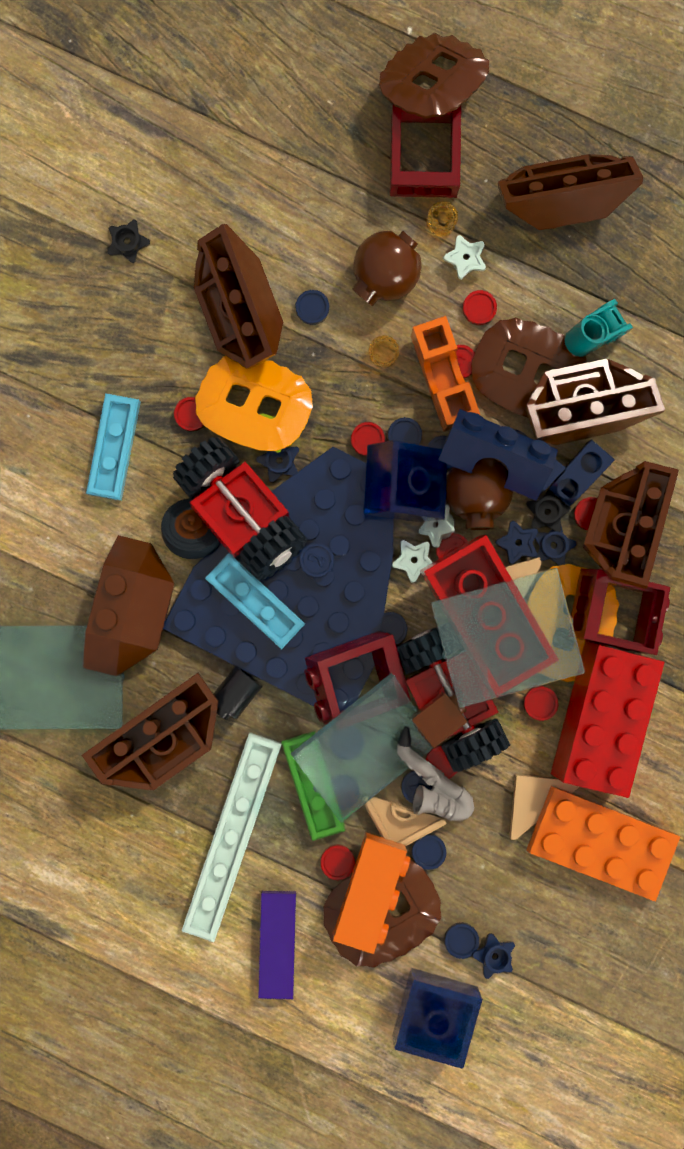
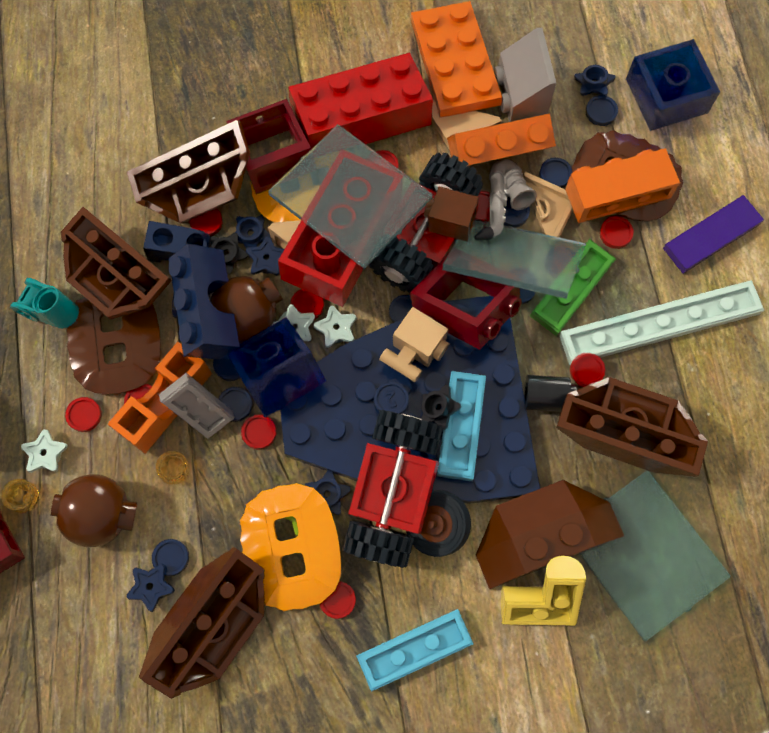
camera: 115 degrees left, 15 degrees down
(72, 575) = (553, 603): none -> light yellow brick
(234, 741) = (587, 369): none -> red piece
(283, 583) = (433, 400): none -> black plate
(301, 286) = (159, 590): none -> dark blue plate
(349, 614) = (419, 340): none -> tan brick
(416, 397) = (196, 405): none -> light grey plate
(485, 819) = (503, 140): none -> orange brick
(533, 887) = (526, 77): none -> light grey slope

